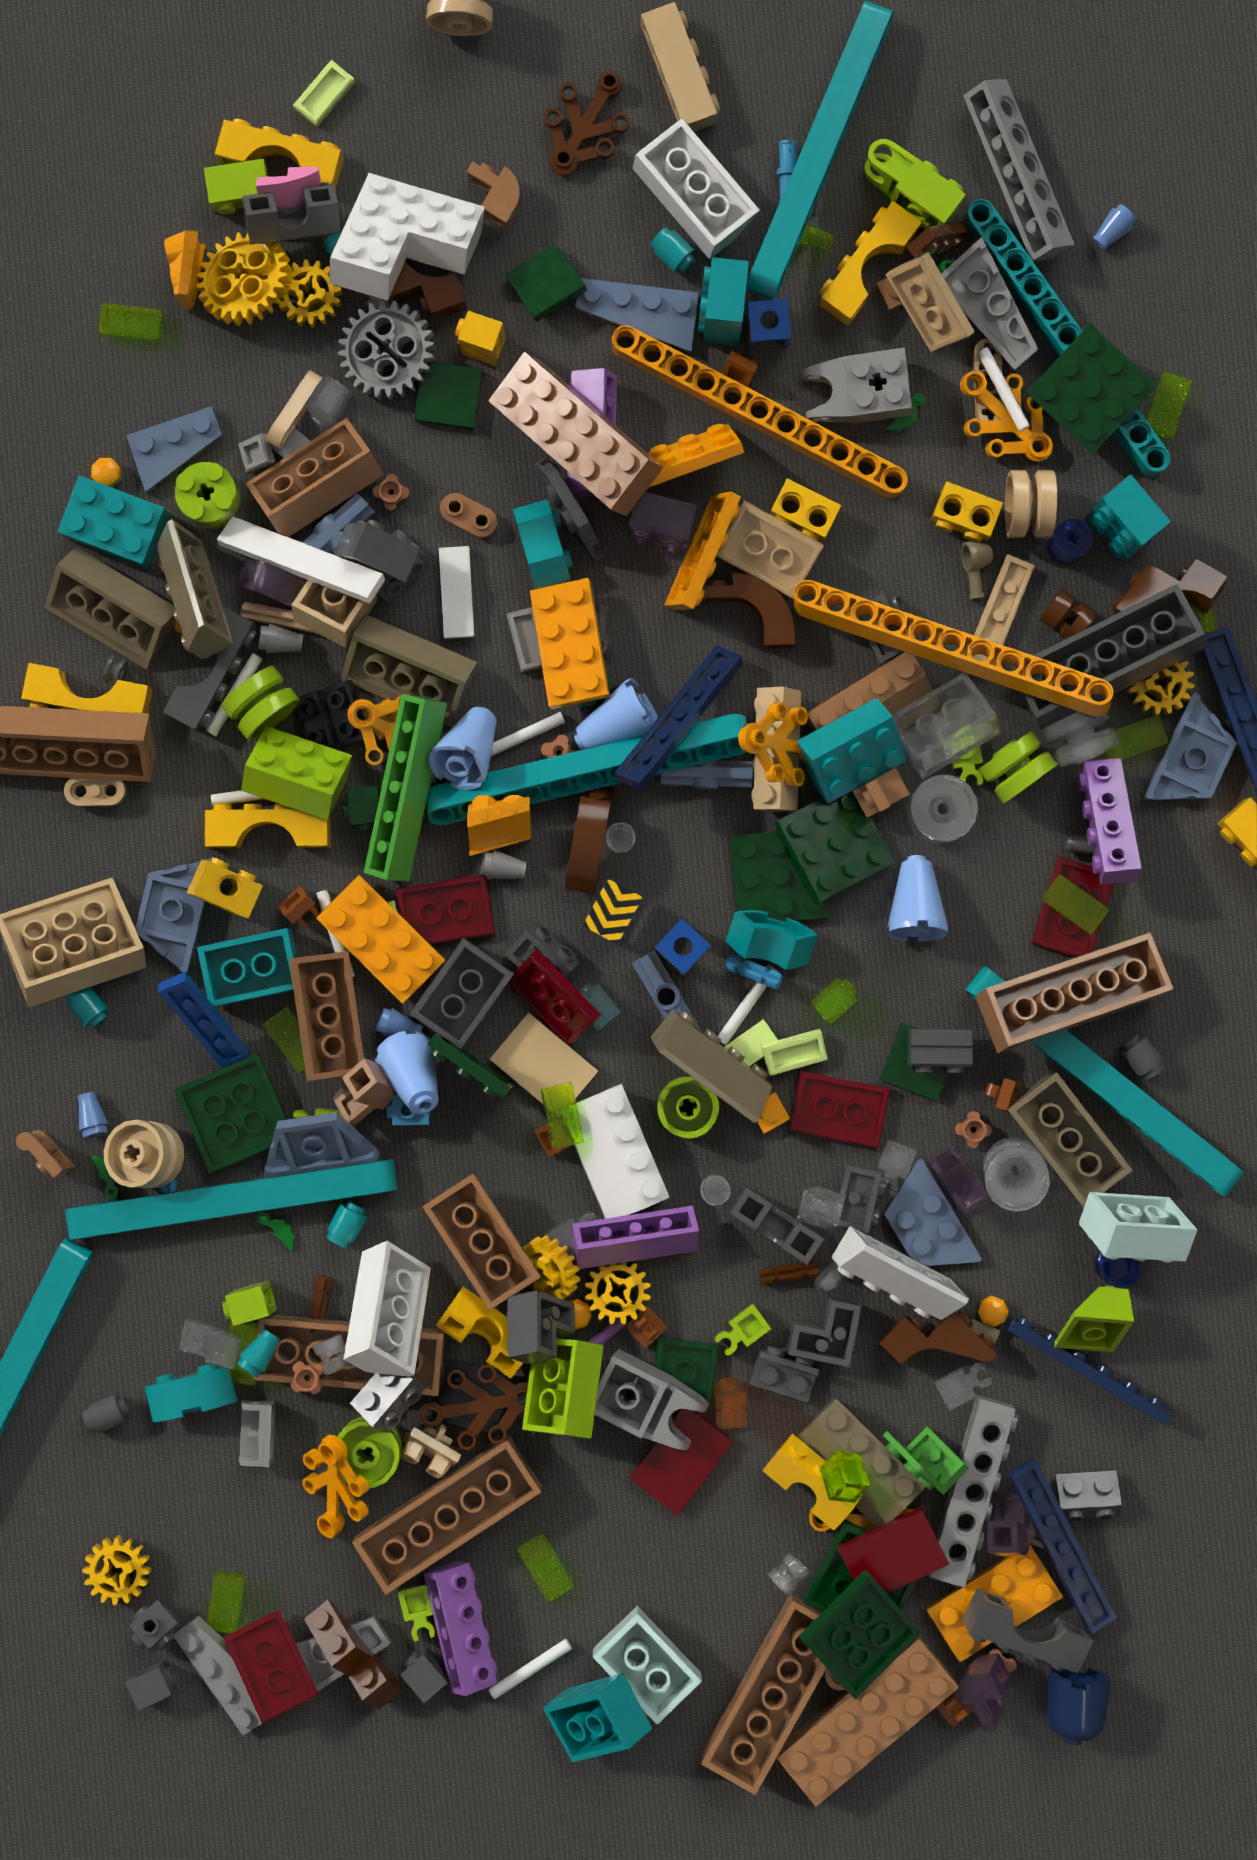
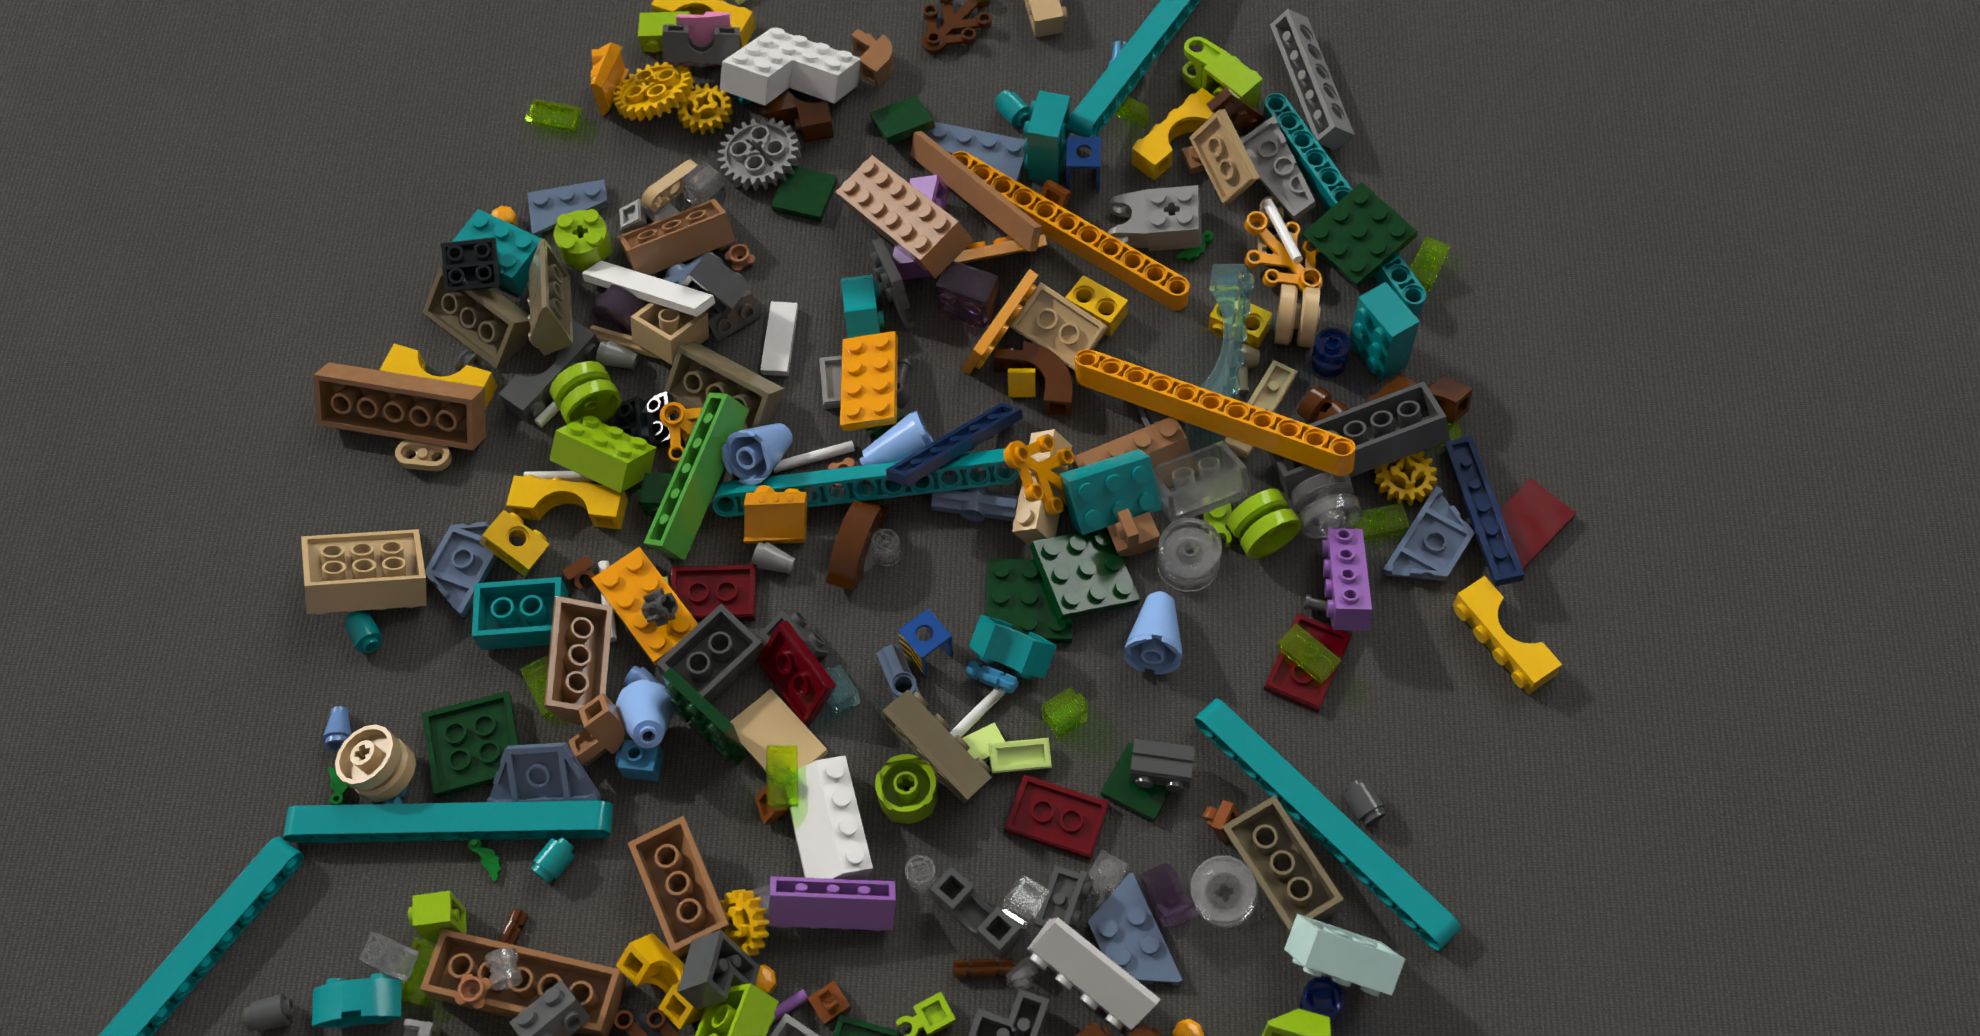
camera: 10 degrees right, 25 degrees down
(50, 1157) = (284, 752): medium nougat plate -> none
(94, 560) = (470, 265): none -> black slope
(203, 1020) = (462, 643): blue plate -> none
(259, 1353) = (430, 959): teal cone -> none
(387, 1311) = (569, 937): white slope -> none
(400, 951) = (659, 607): none -> dark grey gear
(467, 516) = (800, 282): medium nougat plate -> none
(480, 337) = (839, 148): yellow brick -> none
(605, 1299) = (795, 969): yellow gear -> none
(612, 912) = (866, 607): piece -> none
(651, 387) = (976, 191): none -> medium nougat tile
(695, 188) = (1035, 60): white slope -> none
(735, 619) = (1021, 382): none -> yellow tile
(772, 1114) = (987, 811): light orange plate -> none
(956, 491) = (1231, 288): none -> clear light blue arch
(973, 1120) = (1187, 843): nougat plate -> none
(1073, 992) = (1298, 723): medium nougat brick -> none
(1116, 225) = (1392, 128): medium blue cone -> none

